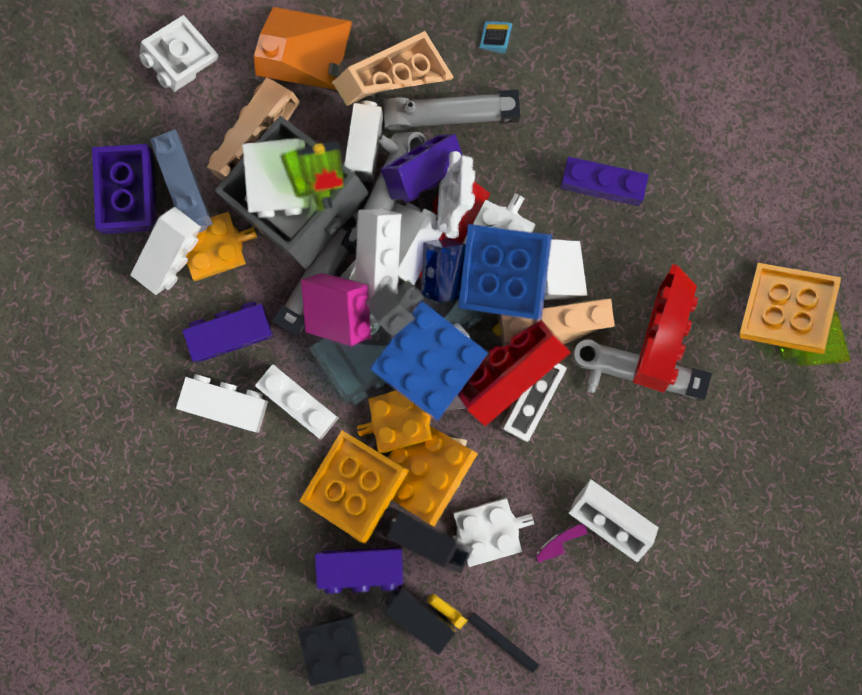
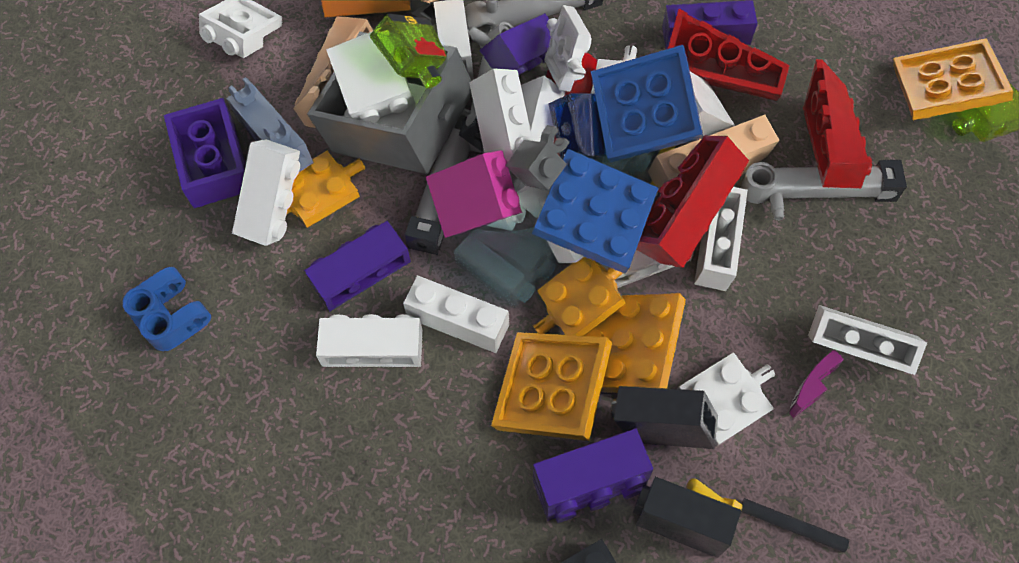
camera: 15 degrees left, 20 degrees down
(57, 329) = (149, 321): none -> blue piece
(592, 228) = (726, 60): none -> red wedge

